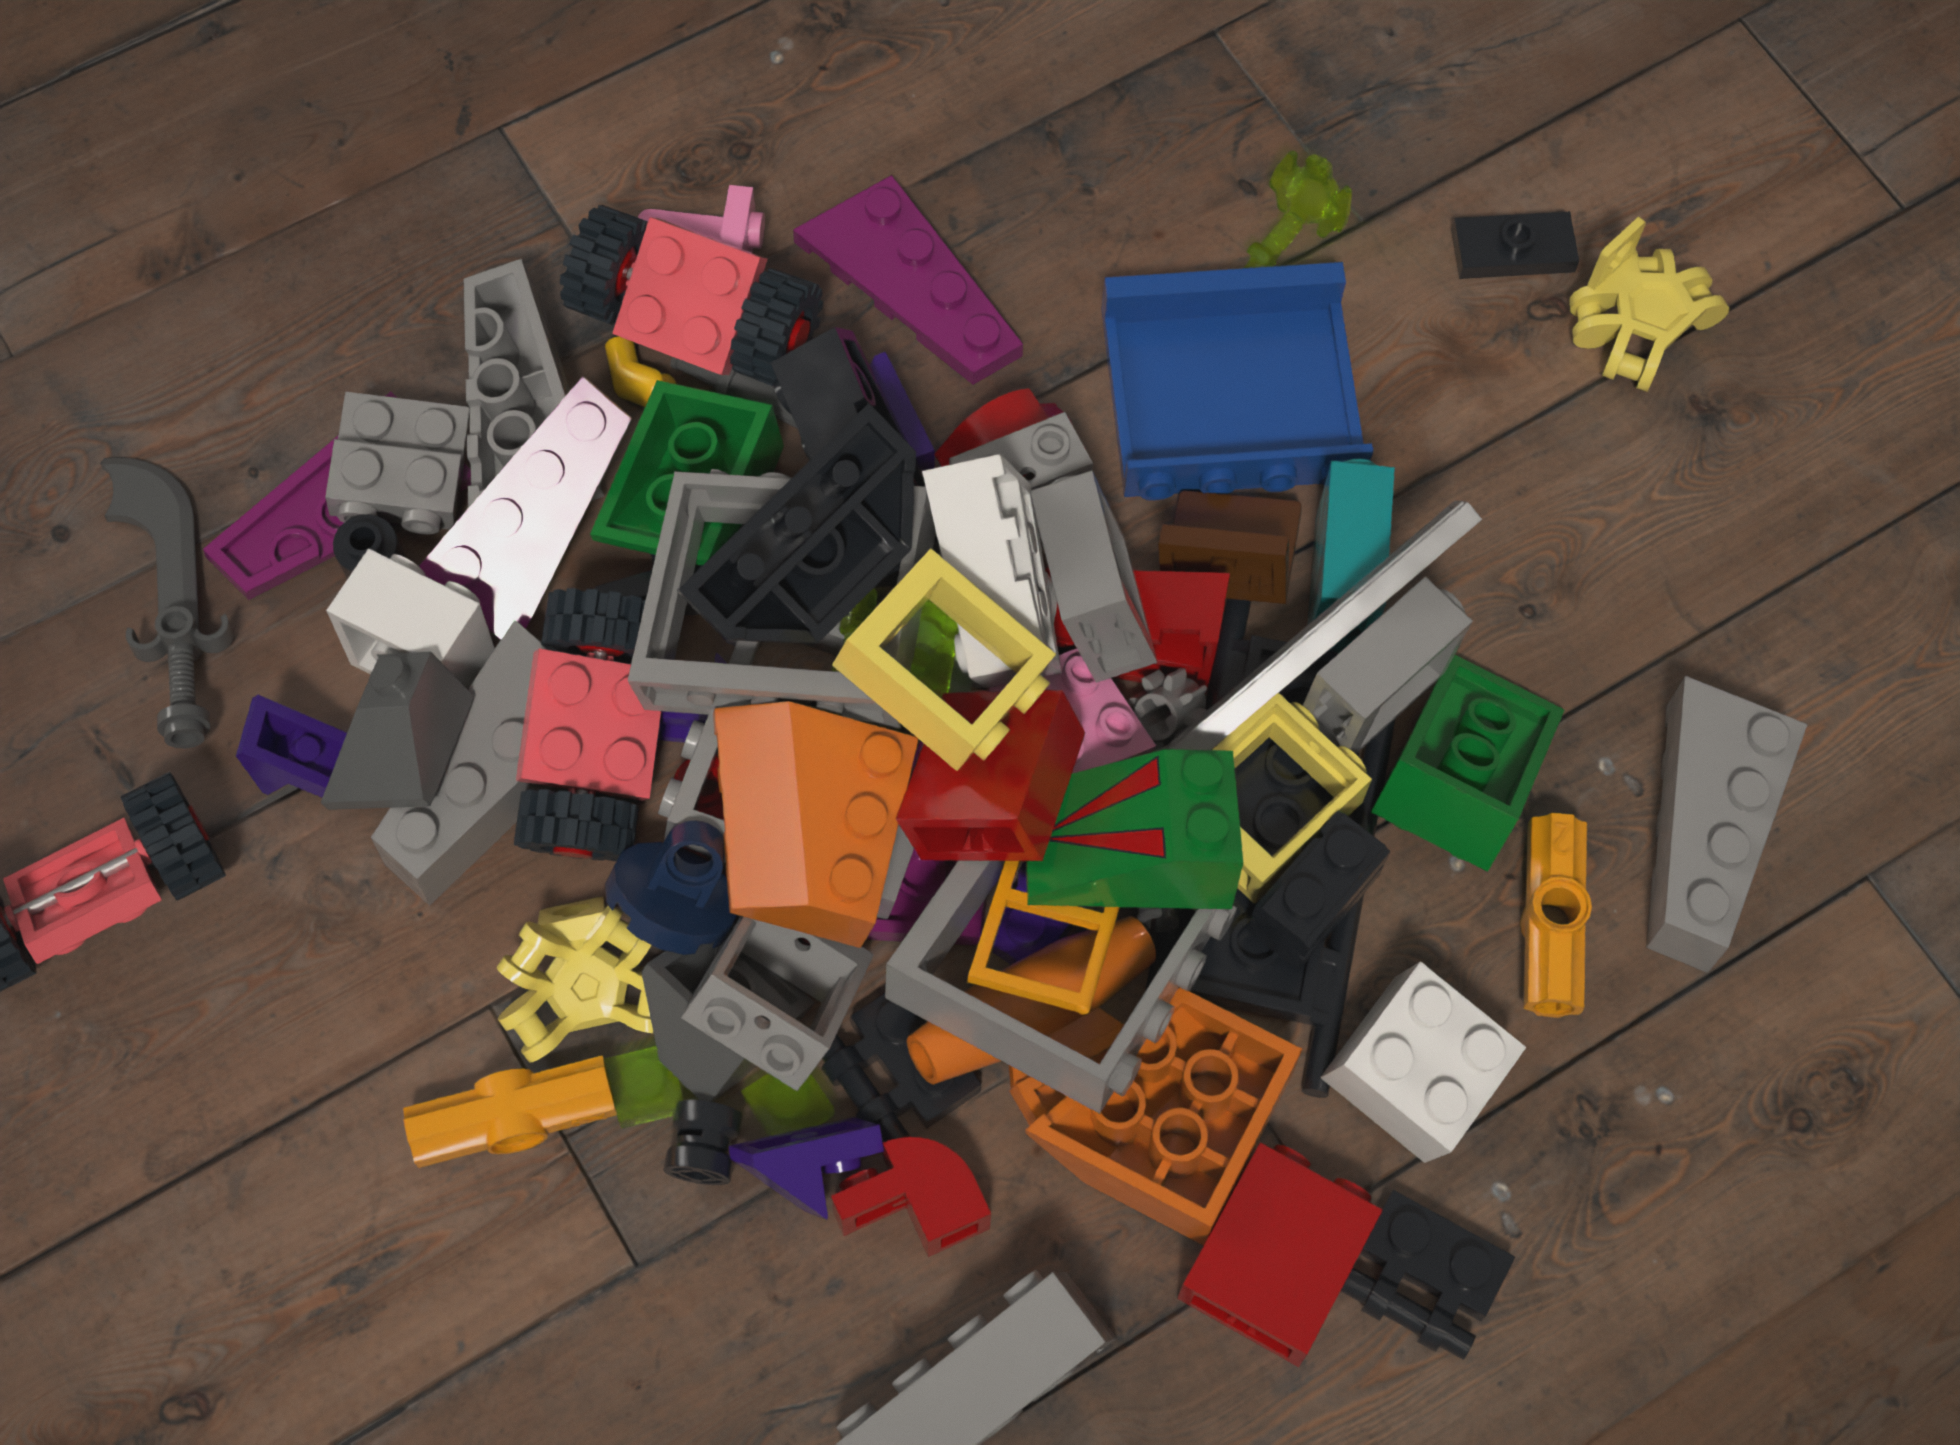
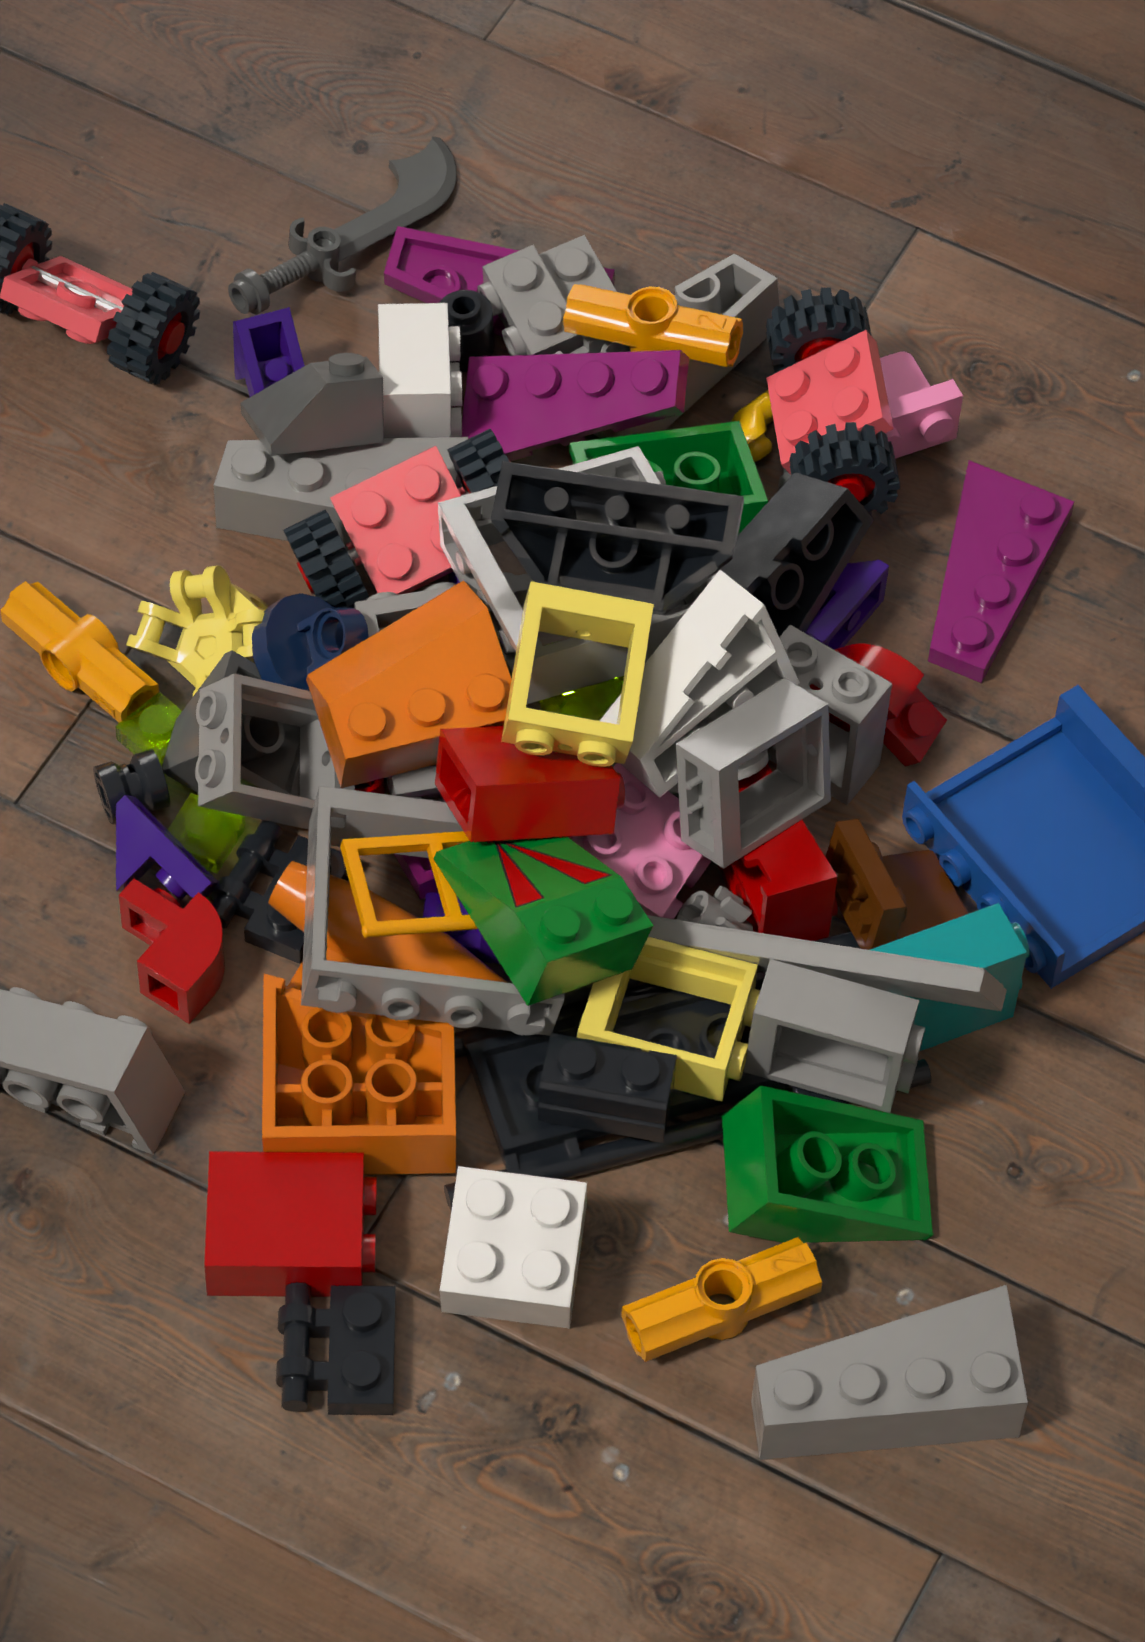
camera: 60 degrees right, 10 degrees down
(485, 408) = (653, 322): none -> light orange piece

